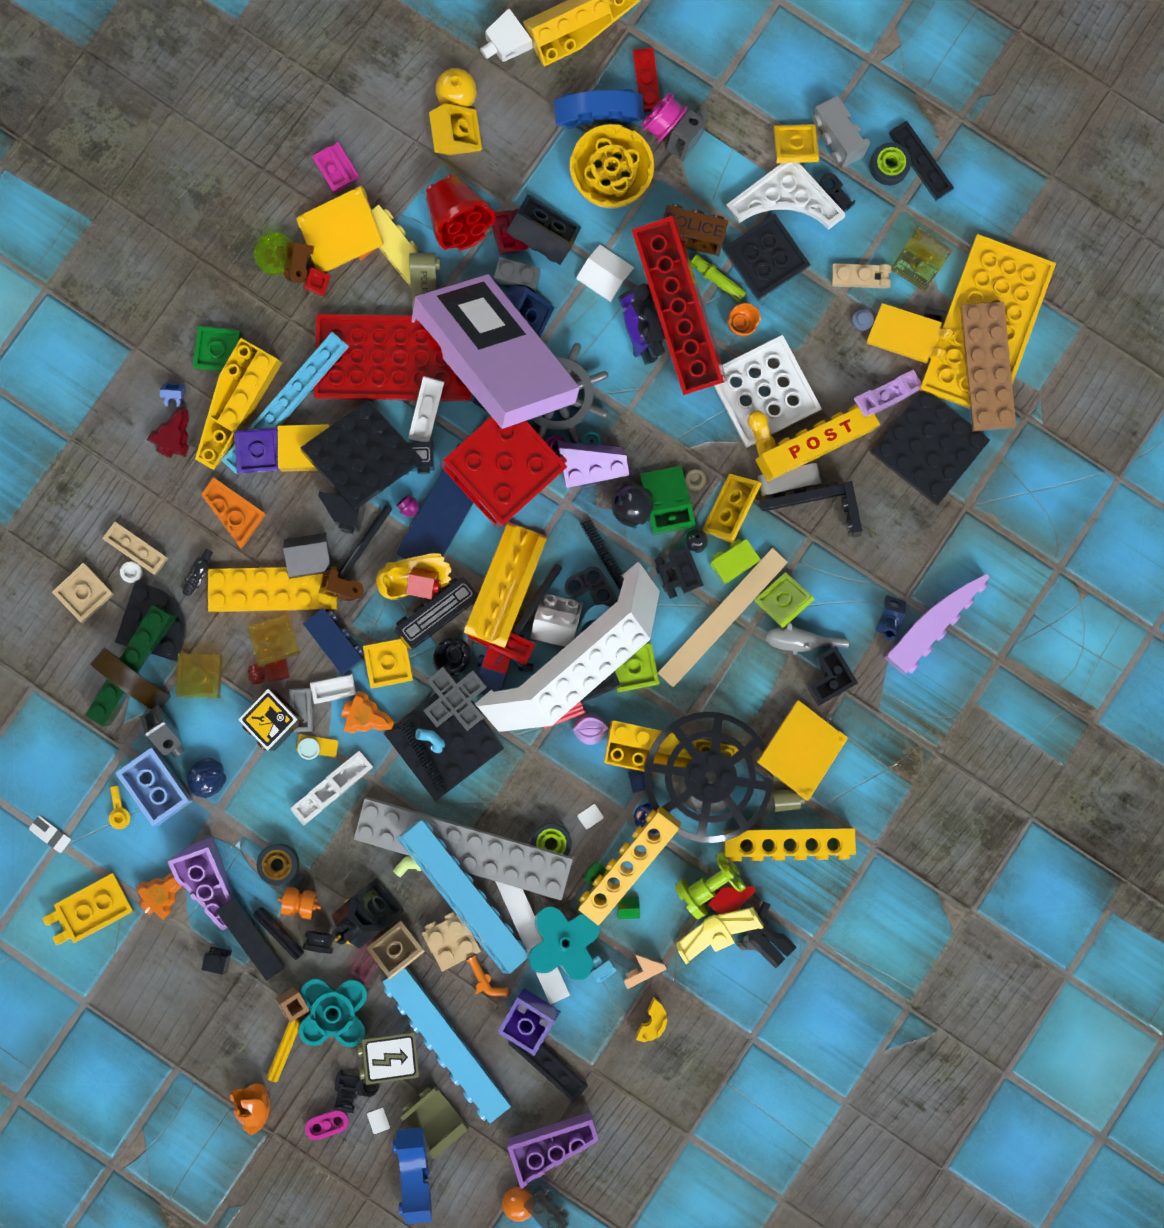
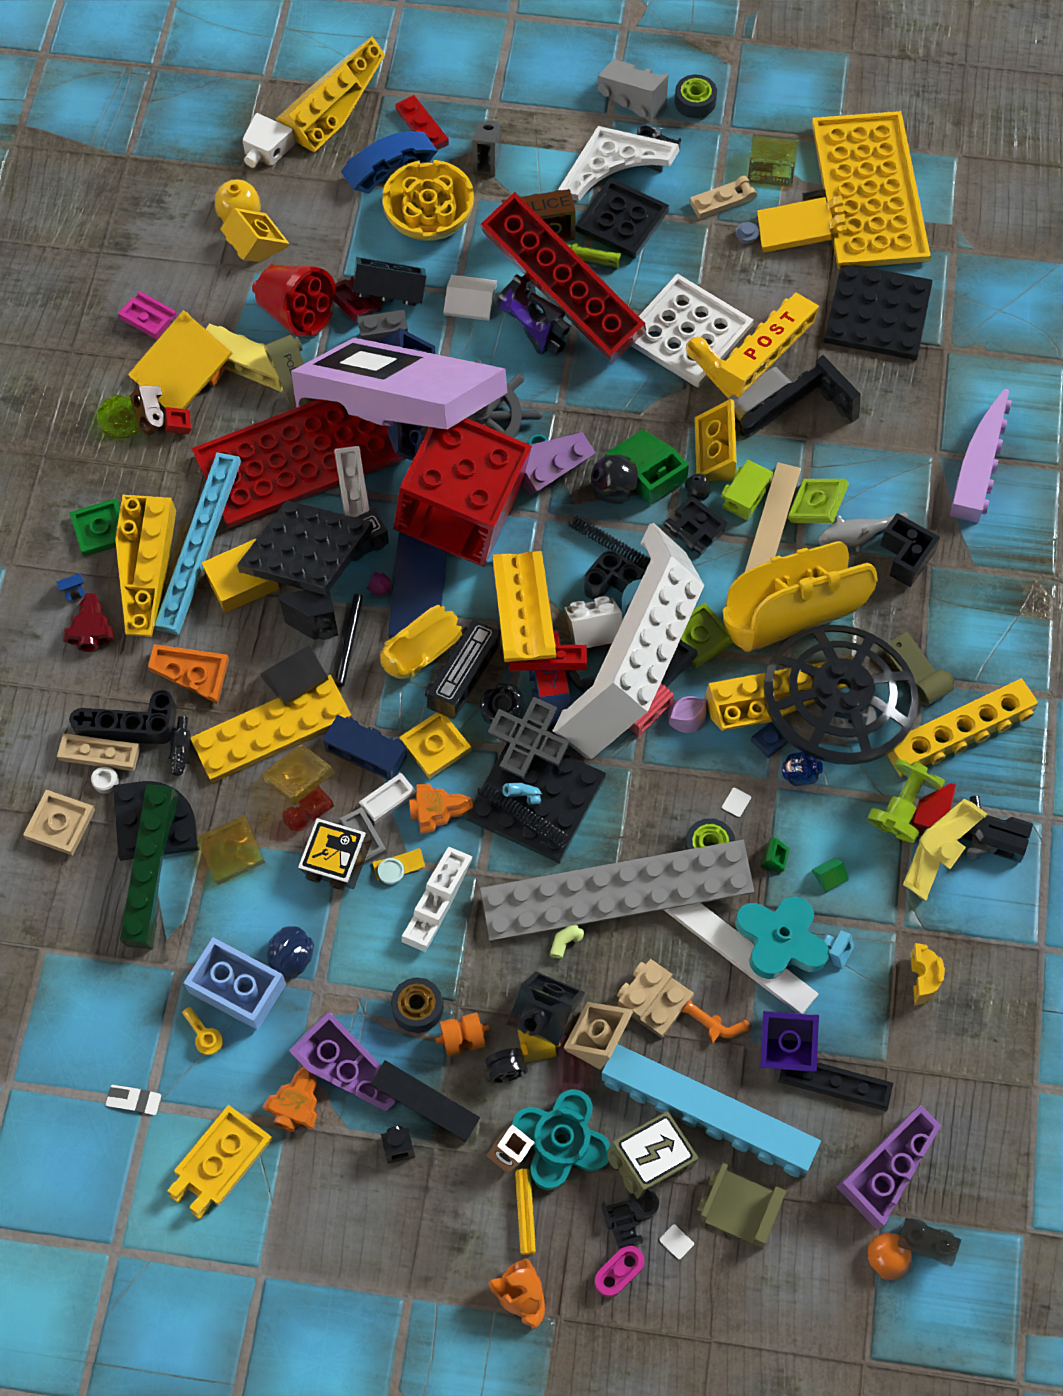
camera: 20 degrees left, 20 degrees down
(129, 680) = (157, 875): dark brown slope -> none
(162, 533) = (91, 722): none -> black beam
(162, 731) = (217, 920): dark grey torso -> none
(256, 450) = (189, 597): dark purple tile -> none
(278, 933) = (454, 1083): black axle -> none
(340, 588) = (345, 688): reddish brown leg -> none
(414, 1171) = (765, 1297): blue brick -> none
(423, 583) = (435, 640): brick -> none
(462, 896) = (645, 935): medium azure brick -> none
(537, 599) = (563, 608): black bar -> none
(599, 909) = (828, 753): yellow brick -> none
(649, 968) = (885, 924): light nougat slope -> none
(664, 116) = (456, 138): dark pink wheel -> none
(695, 479) = (665, 434): dark tan tile -> none
(716, 678) = (795, 595): none -> yellow animal
(743, 319) = (631, 275): orange hair -> none
(796, 143) = (596, 115): yellow tile -> none
(802, 750) = (922, 629): yellow piece -> none
(888, 394) = (812, 280): lavender slope -> none
(891, 618) = (935, 474): dark blue bracket -> none
(922, 161) = (727, 86): black tile -> none
(988, 366) = (892, 217): medium nougat plate -> none

